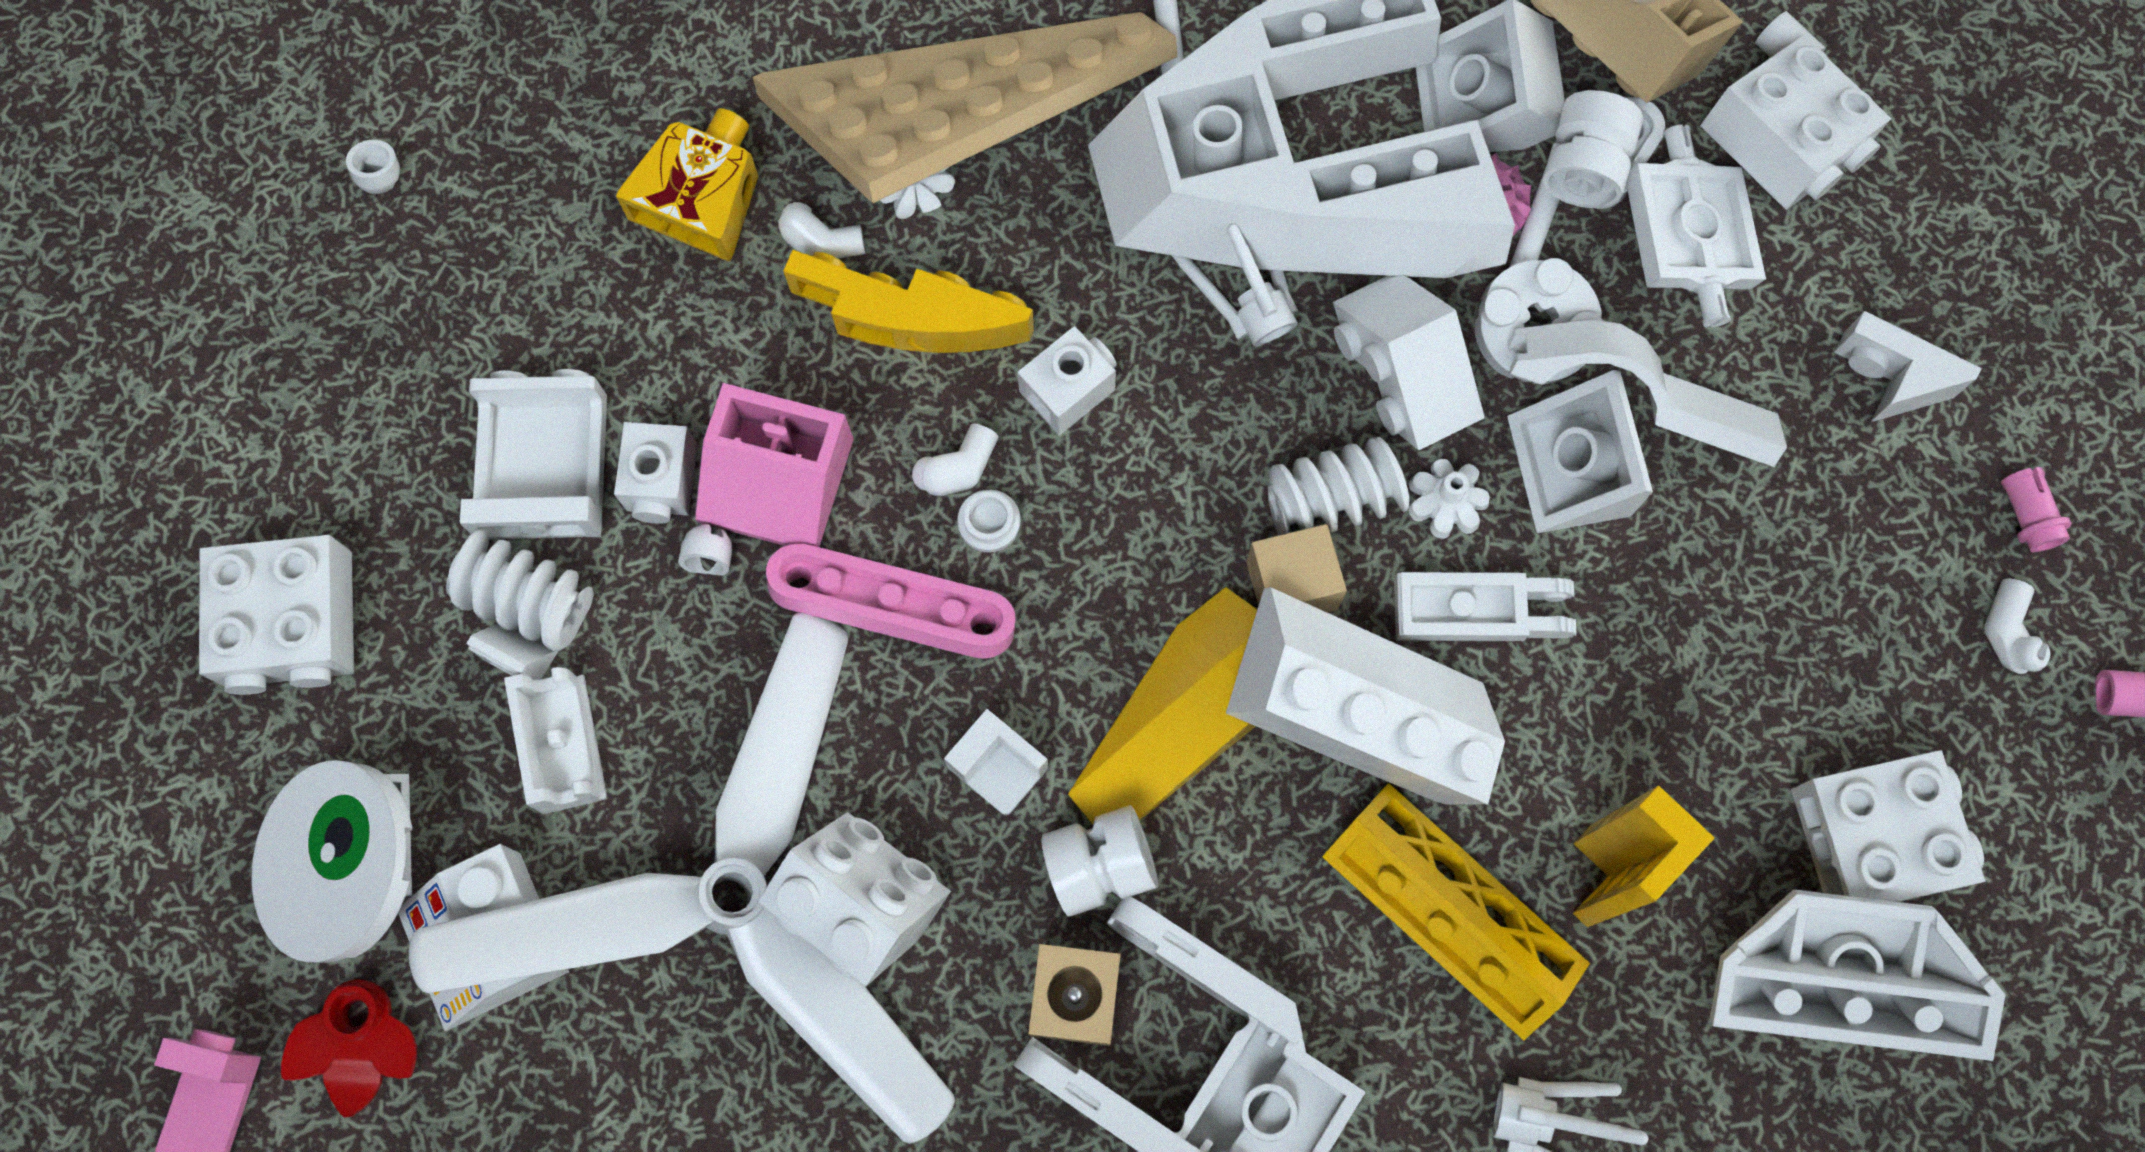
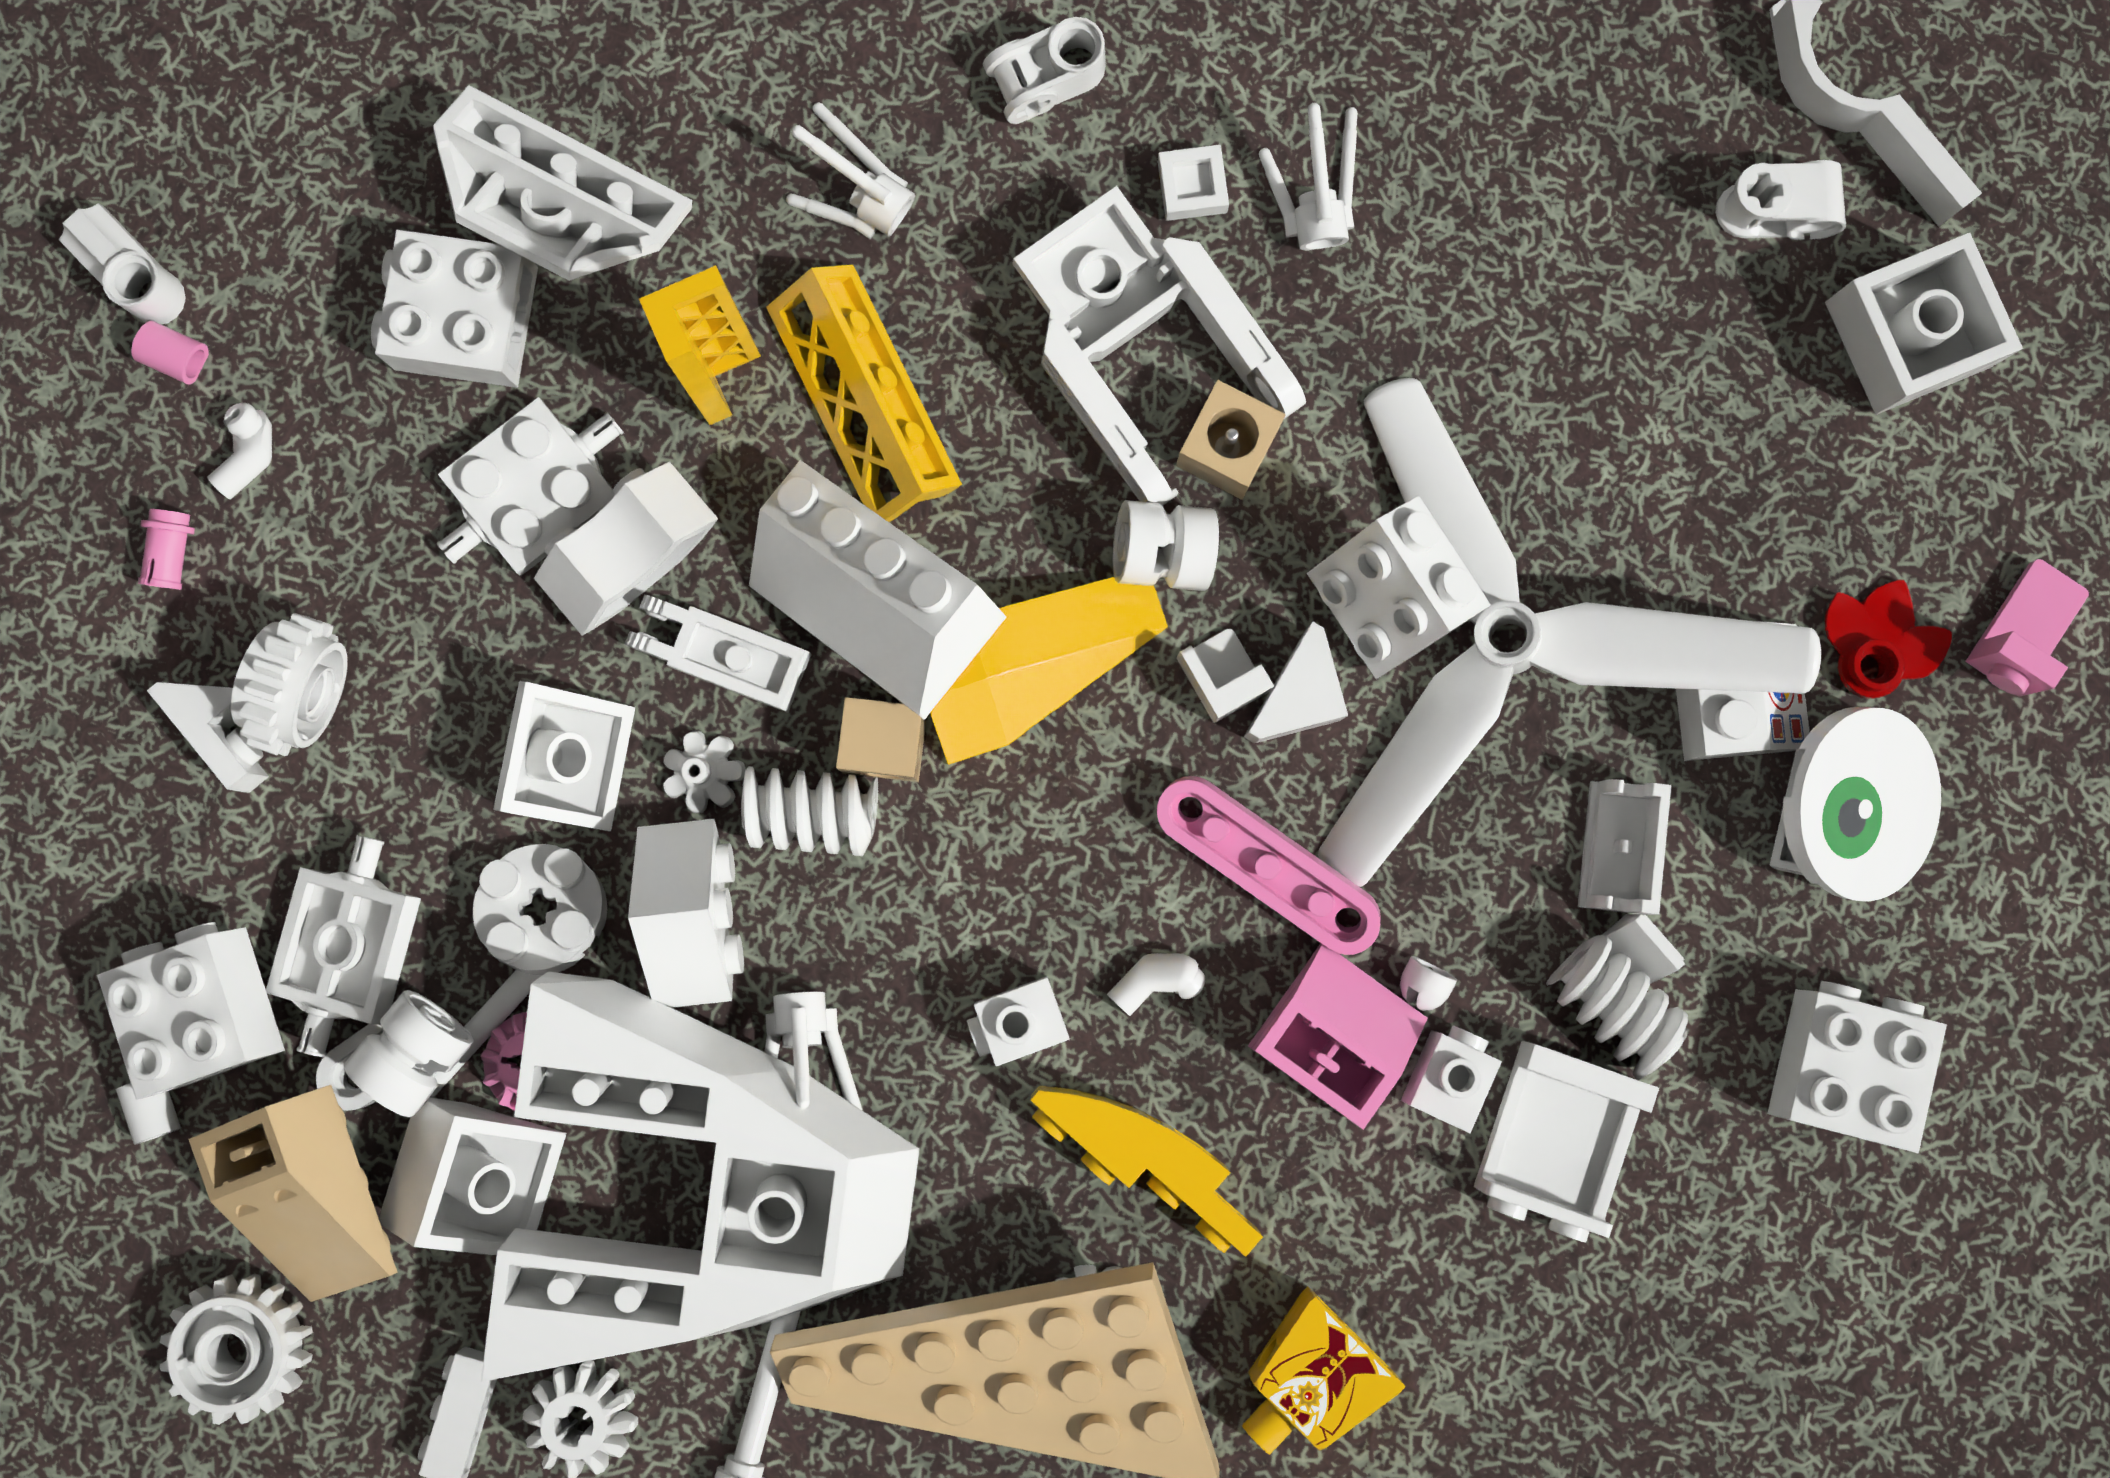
camera: 165 degrees left, 10 degrees up
(810, 235) = (1216, 1275): white arm -> none
(915, 769) = (1304, 692): none -> white slope
(989, 520) = (1146, 912): white plate -> none
(1615, 667) = (624, 546): none -> white brick
(1674, 402) = (446, 769): white piece -> none
(1732, 697) = (528, 485): none -> white plate
(1858, 418) = (289, 684): none -> white gear

